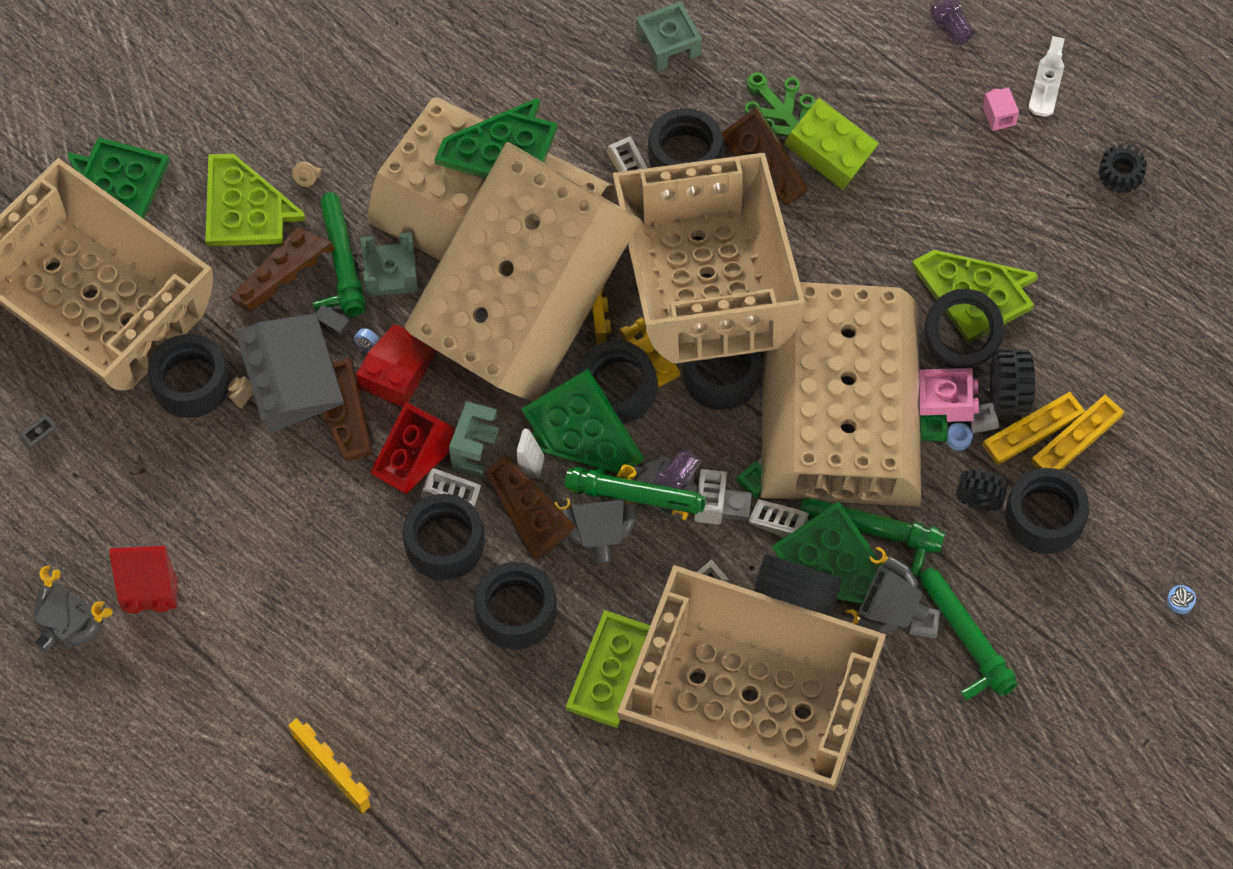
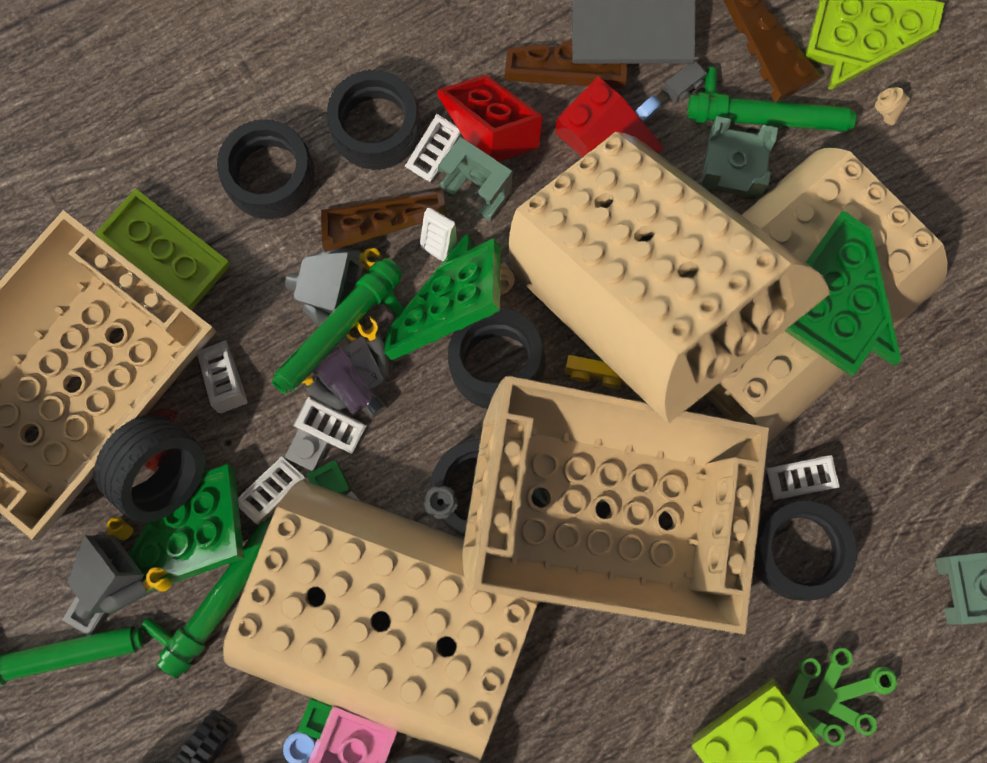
camera: 110 degrees right, 15 degrees up
(745, 371) = (446, 495): none -> dark grey plate
(754, 136) = (779, 646): reddish brown wing -> none

